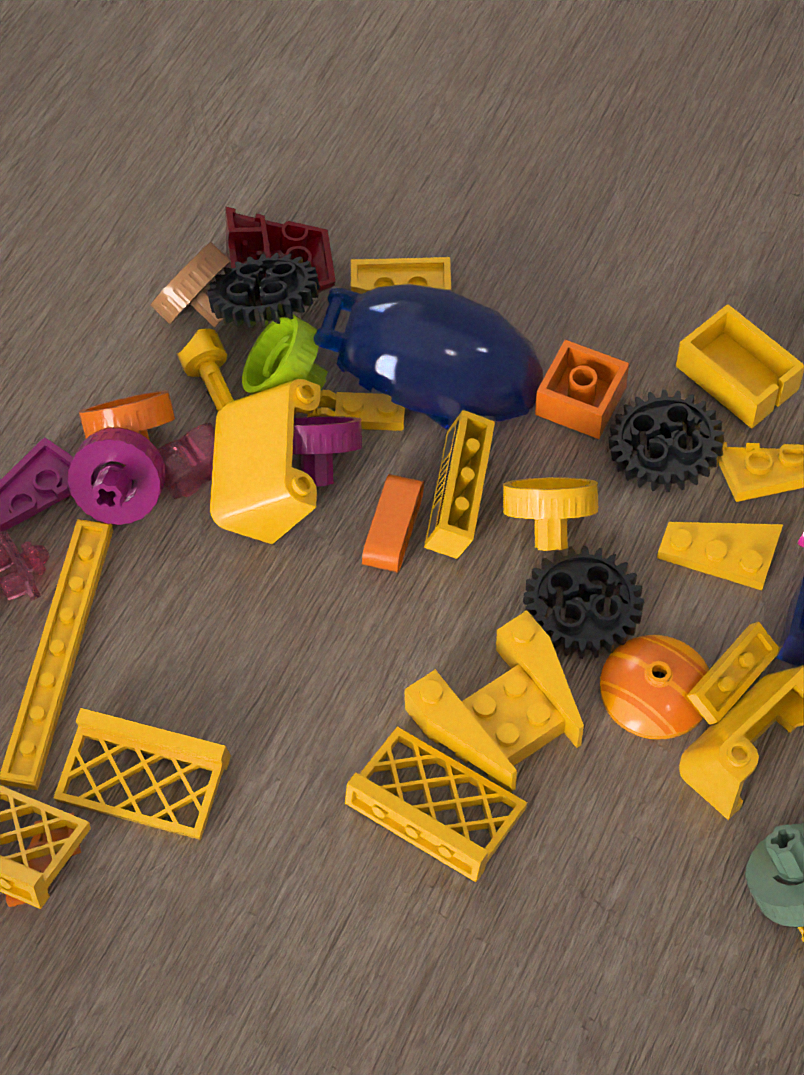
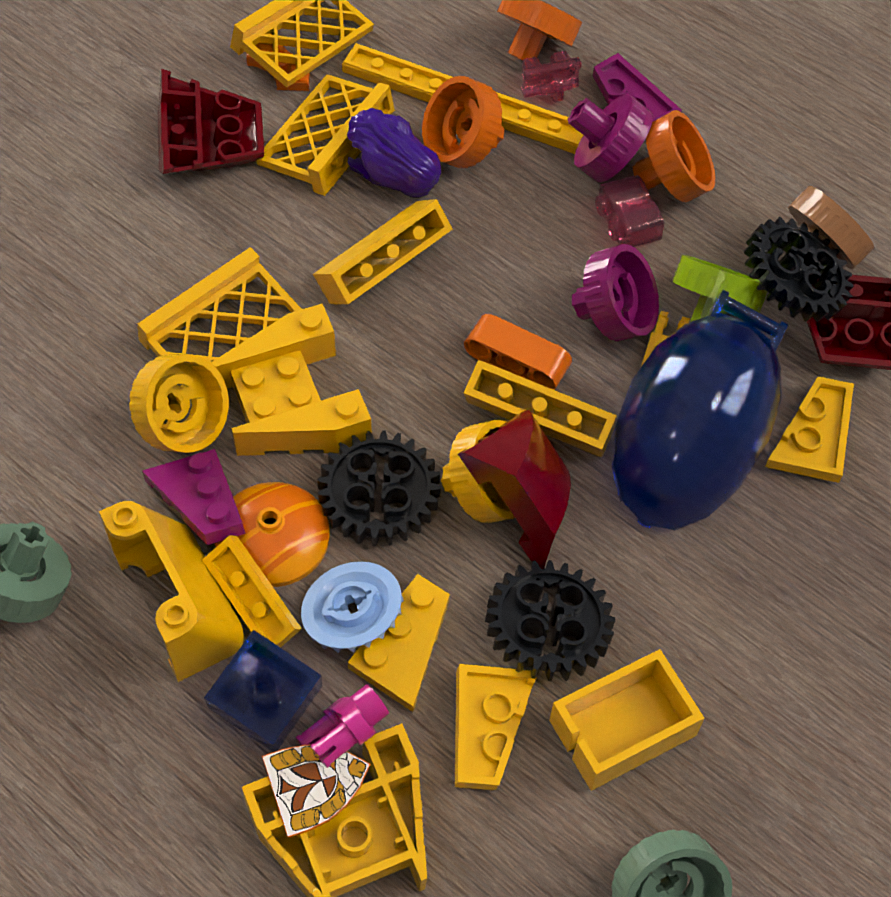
camera: 100 degrees right, 0 degrees up
(112, 601) = (476, 127): none -> orange piece
(178, 682) = (392, 154): none -> dark purple hair
(181, 898) = (205, 127): none -> dark red wedge
(203, 359) = (706, 244): yellow piece -> none
(252, 470) = (565, 220): yellow windscreen -> none
(310, 662) = (382, 252): none -> yellow brick
(555, 463) = (527, 477): none -> dark red wedge
(566, 790) = (159, 398): none -> yellow piece
(581, 389) = (631, 549): orange brick -> none
(647, 749) = (200, 494): none -> magenta wing
(716, 564) = (327, 601): none -> light blue gear

